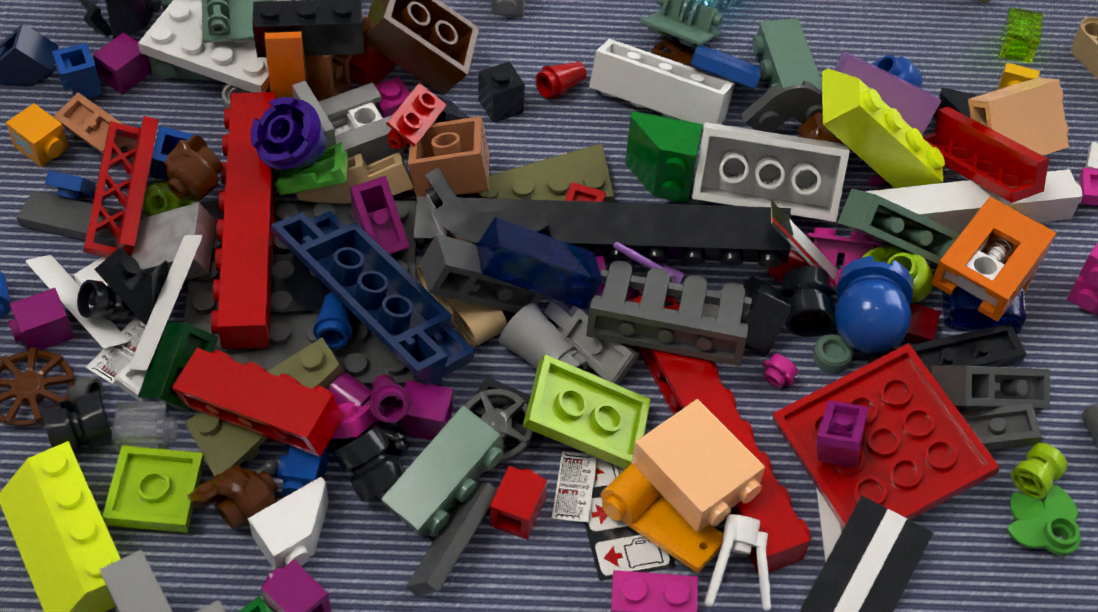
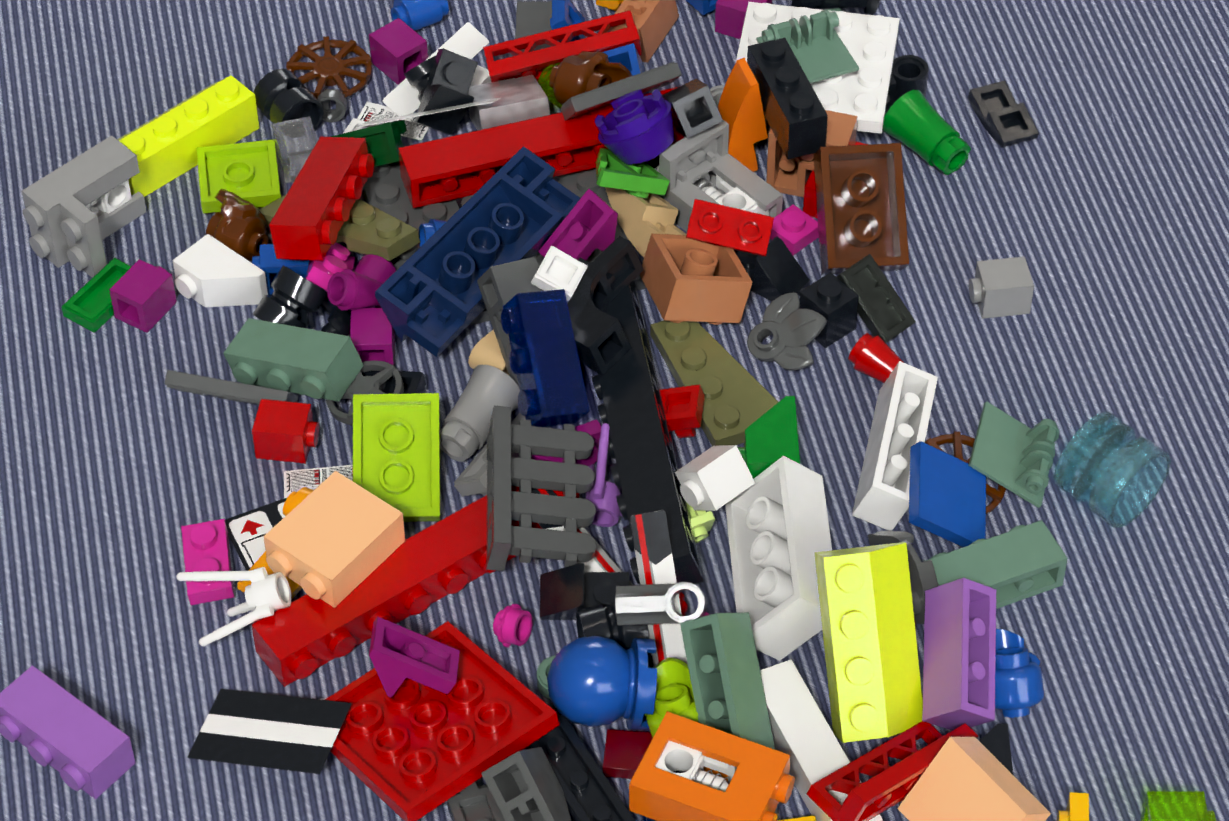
camera: 80 degrees right, 5 degrees down
(234, 140) = (606, 94): none -> dark grey tile
(284, 82) = (693, 108): none -> black brick
(459, 224) = (559, 272): none -> white tile
(493, 54) = (877, 299): none -> pearl dark grey plate
(519, 116) = (791, 333): none -> dark grey plate
(694, 182) = (714, 478): none -> white brick
(826, 239) = (654, 604): none -> piece

